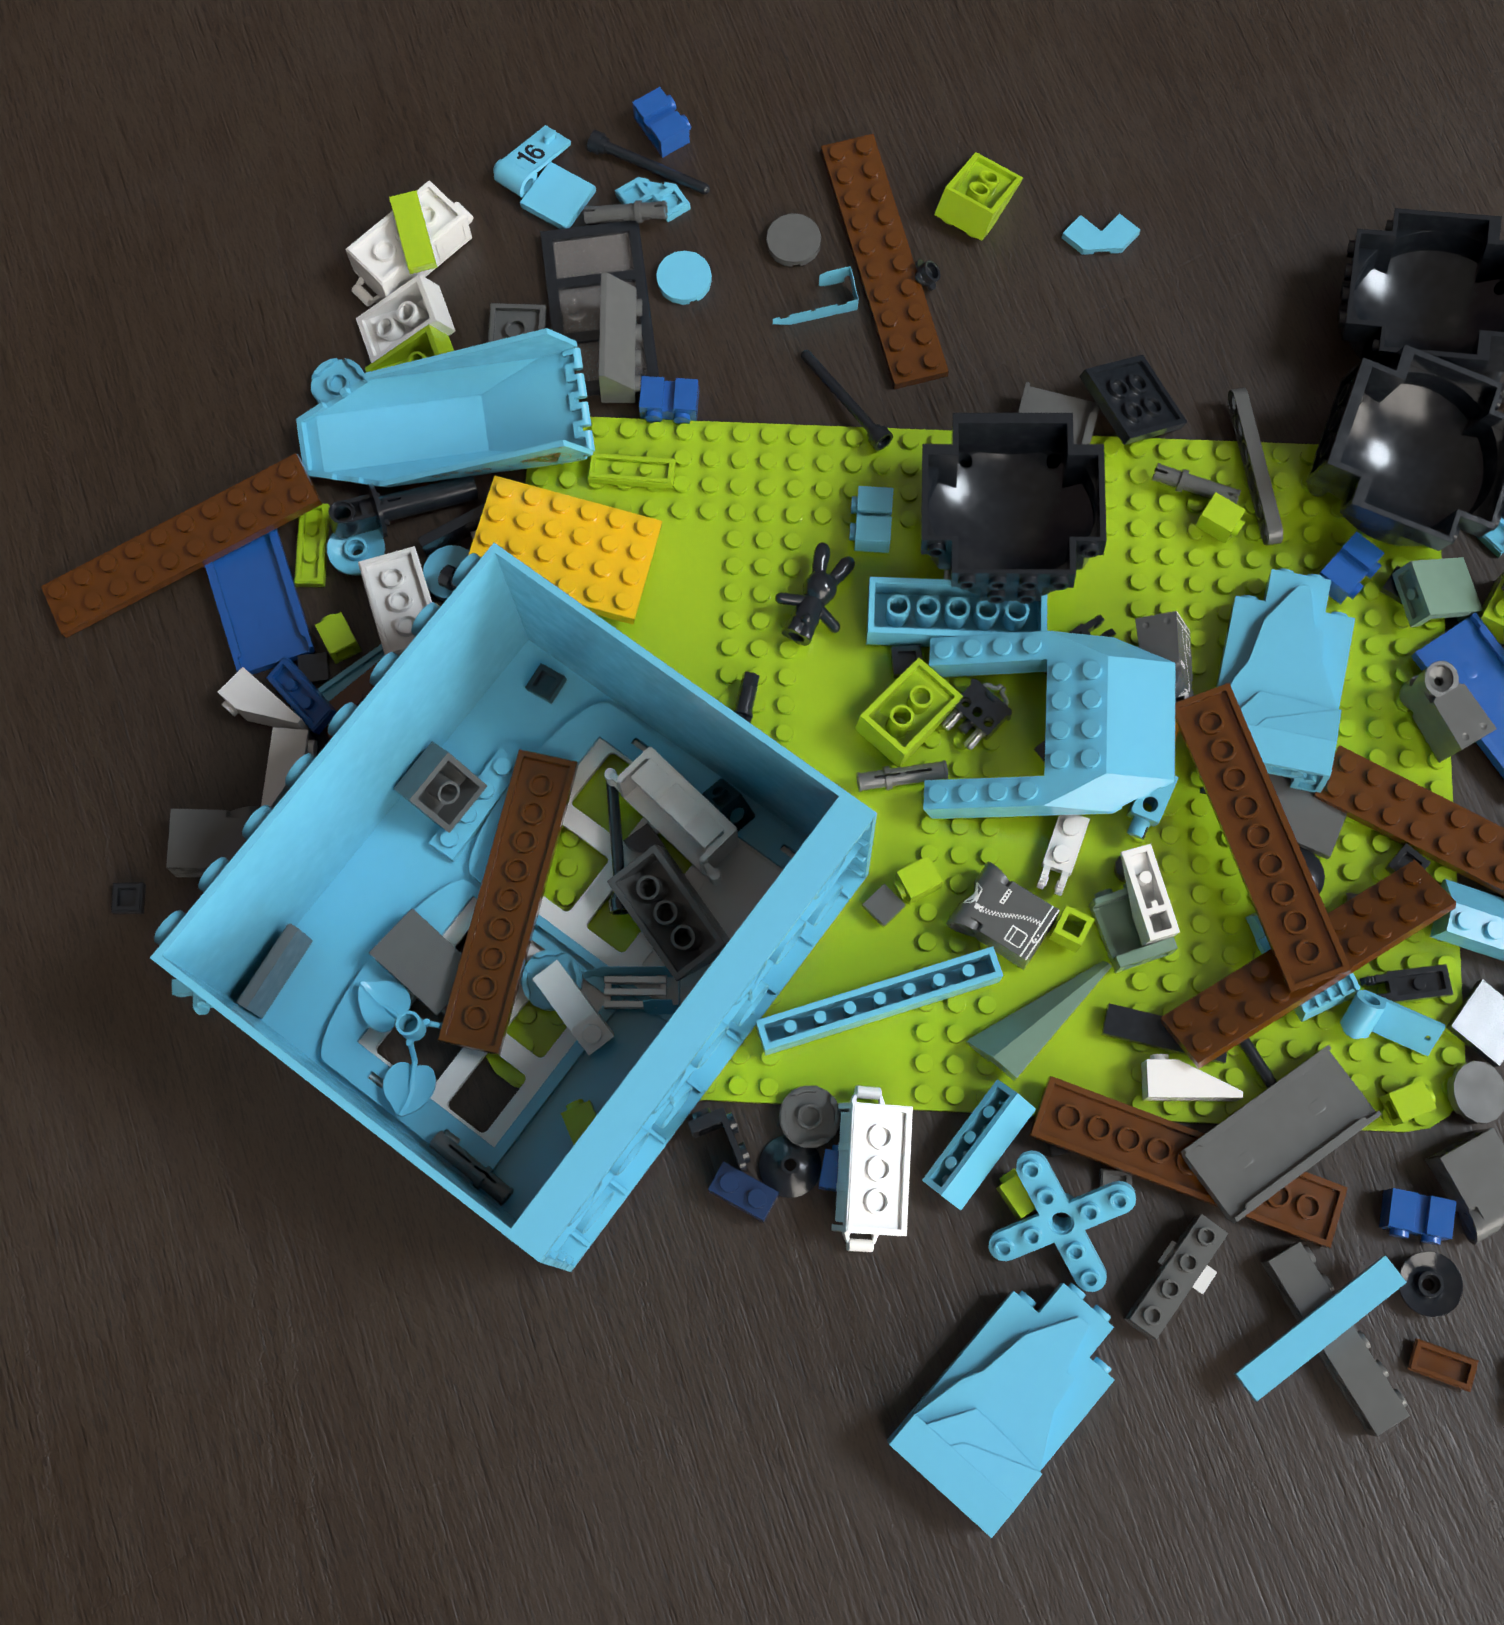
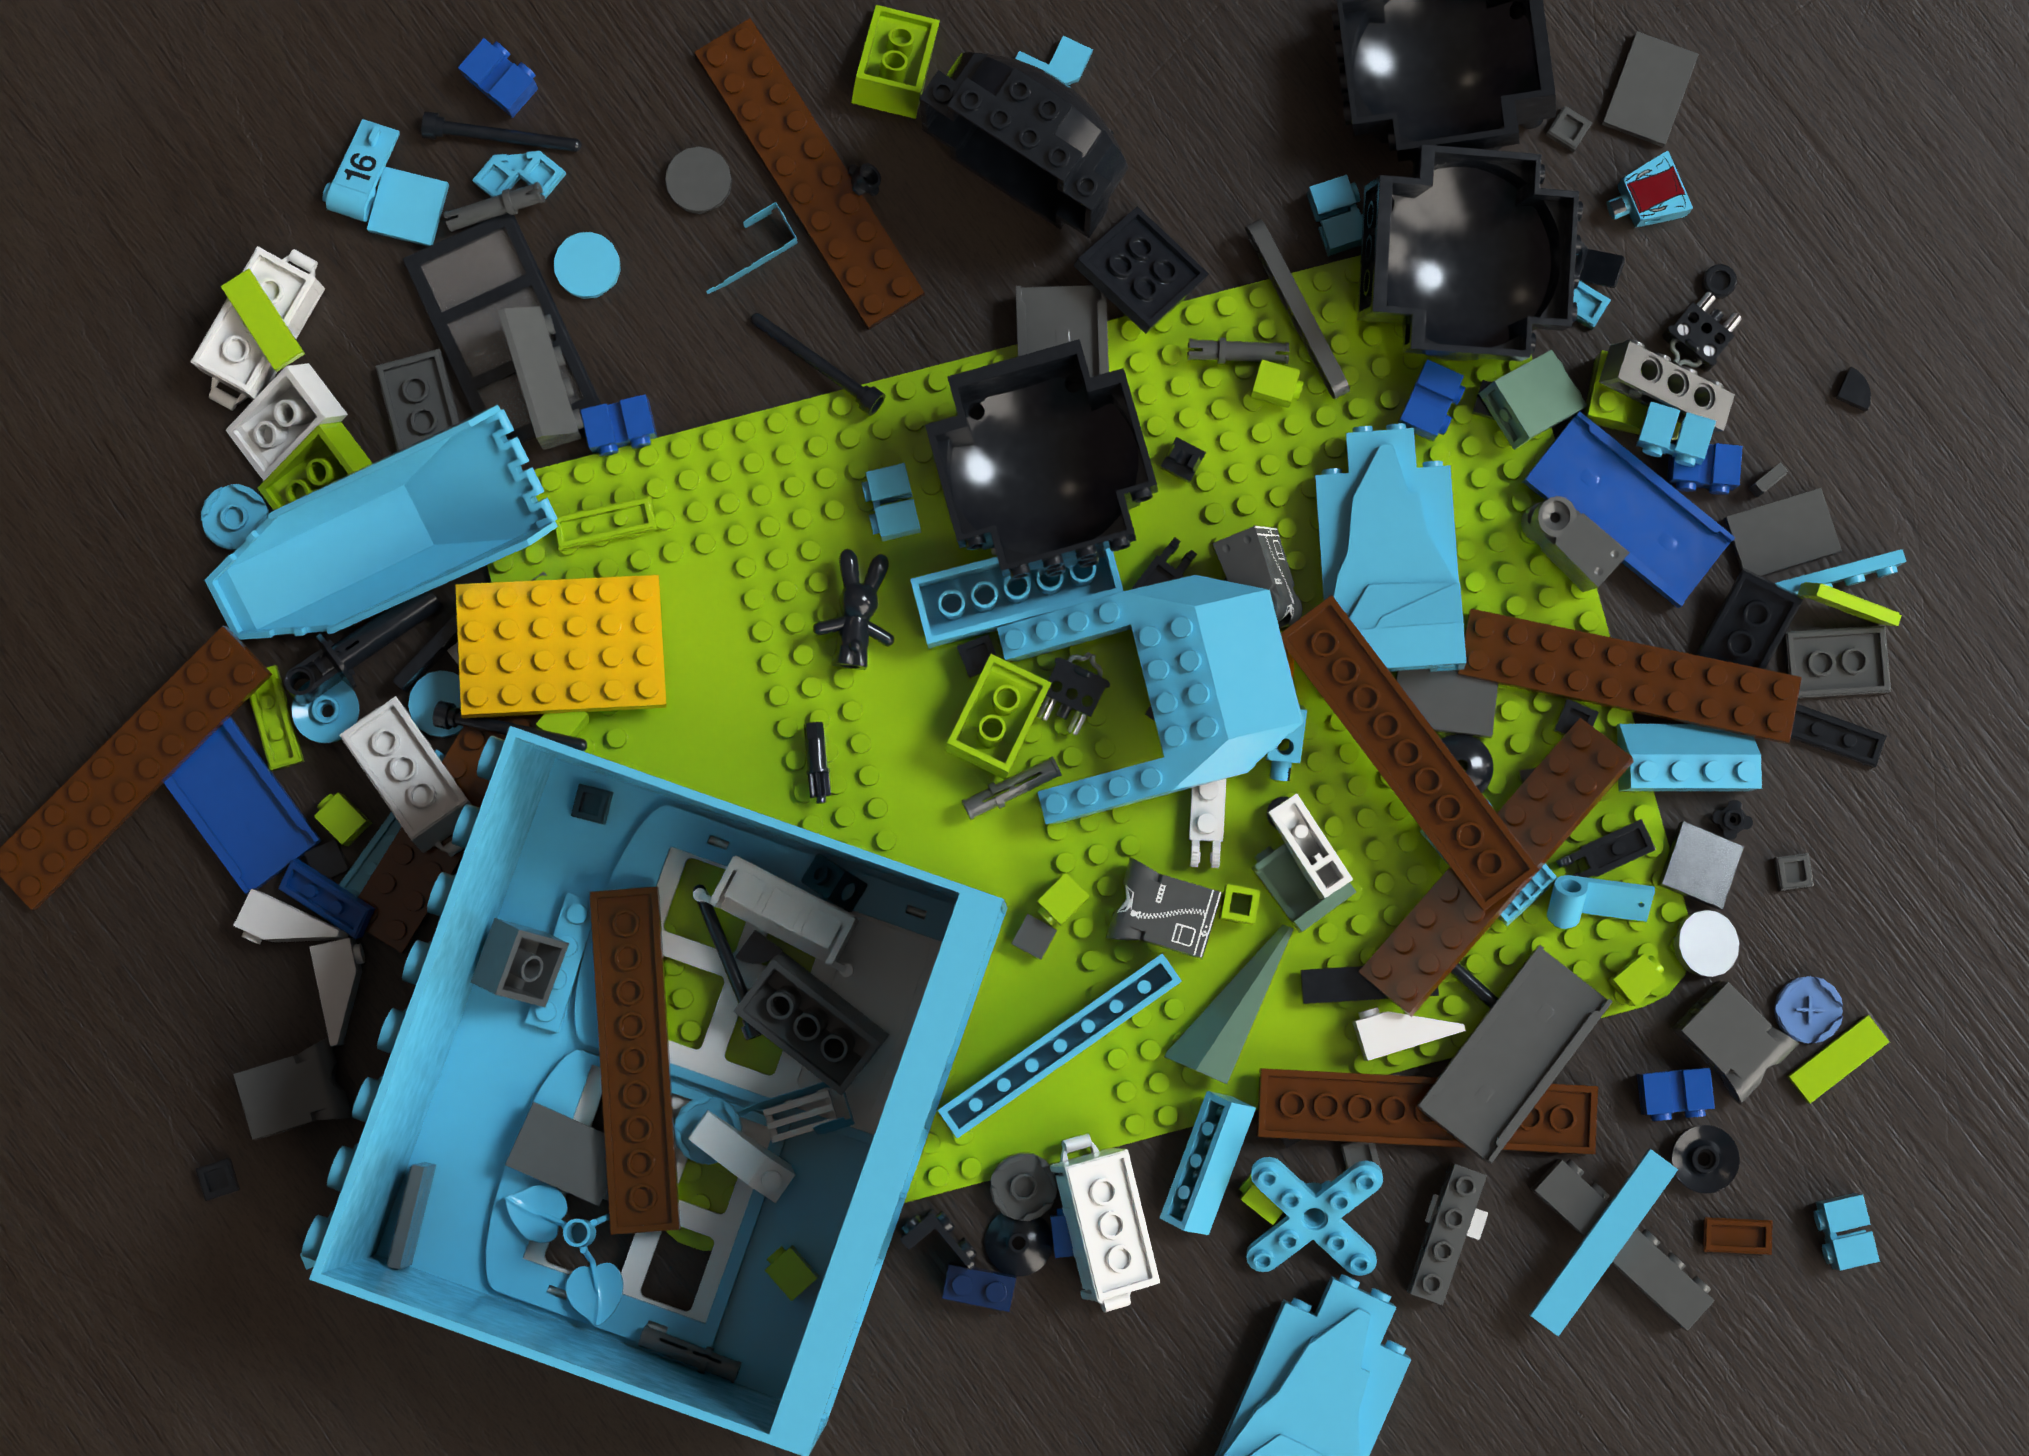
camera: 20 degrees left, 10 degrees up
(1070, 258) = (1026, 137): none -> black windscreen
(1124, 557) = (1182, 460): none -> black tile
(1308, 399) = (1333, 199): none -> medium azure piece

